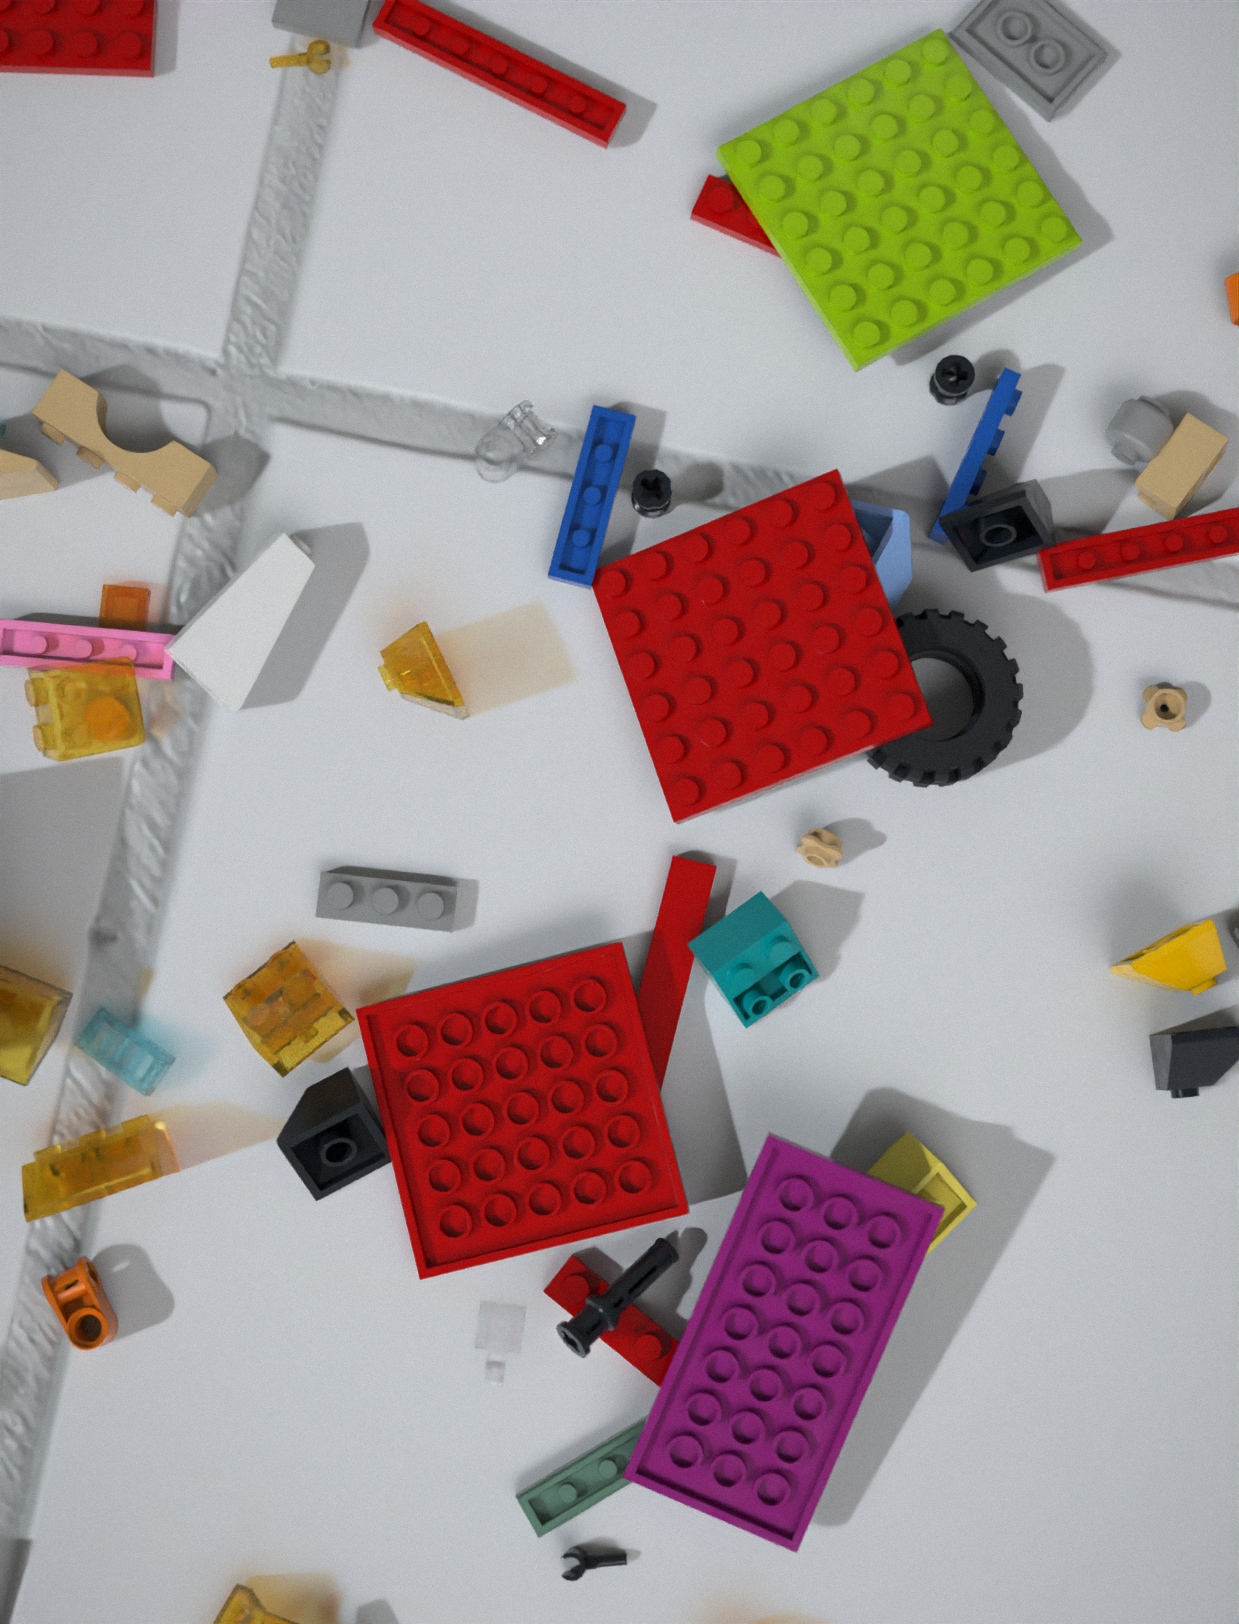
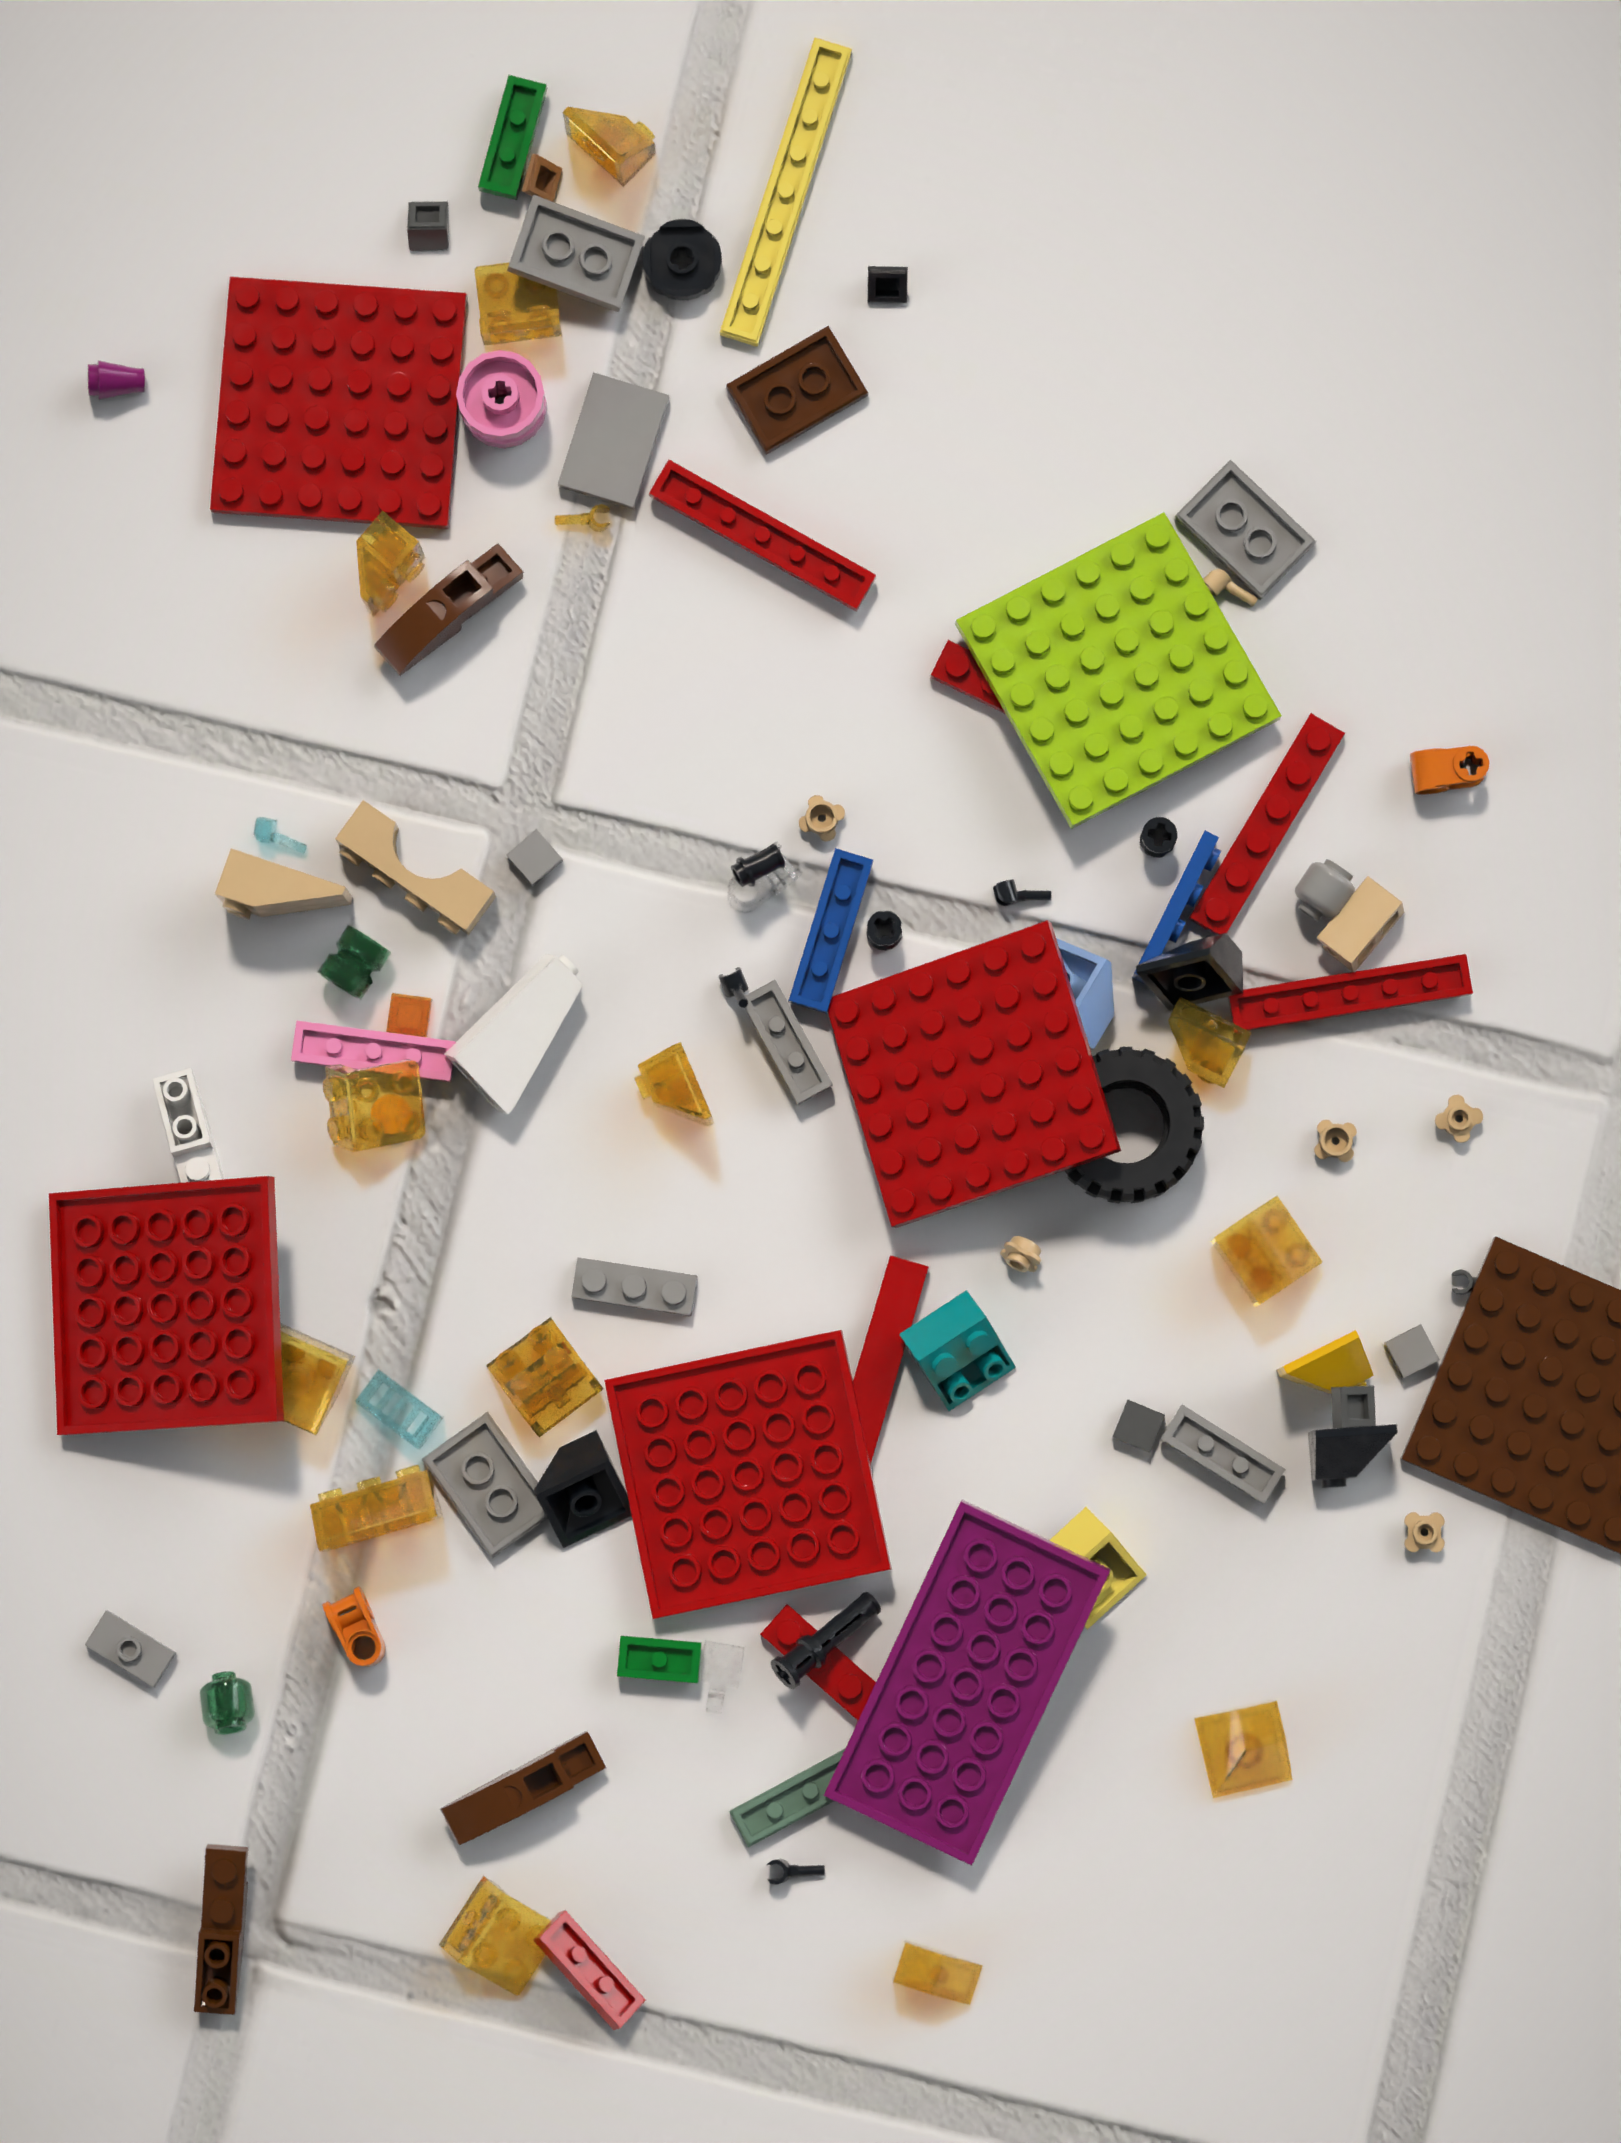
camera: 10 degrees right, 0 degrees up
(58, 550) = (354, 962): none -> clear green wheel
(80, 106) = (385, 561): none -> clear yellow slope
(148, 154) = (446, 606): none -> reddish brown slope
(227, 1132) = (487, 1484): none -> light grey tile
(259, 429) = (534, 857): none -> light grey tile
(277, 1484) = (523, 1788): none -> reddish brown slope
(429, 1325) = (659, 1659): none -> green plate
(487, 561) = (735, 985): none -> black hand
(506, 423) = (757, 865): none -> black pin
(547, 622) = (787, 1042): none -> light grey plate
(574, 361) = (818, 807): none -> tan plate
(786, 449) = (1007, 894): none -> black hand
(960, 1036) = (1138, 1426): none -> dark grey tile
(1005, 100) = (1219, 579): none -> tan hand
(1020, 603) = (1207, 1042): none -> clear yellow slope
(1057, 1064) = (1222, 1454): none -> light grey plate
(1069, 364) = (1267, 825): none -> red plate
(1094, 835) = (1266, 1251): none -> clear yellow slope
(1098, 1397) = (1244, 1748): none -> clear yellow slope
(1207, 1006) = (1353, 1406): none -> dark grey plate

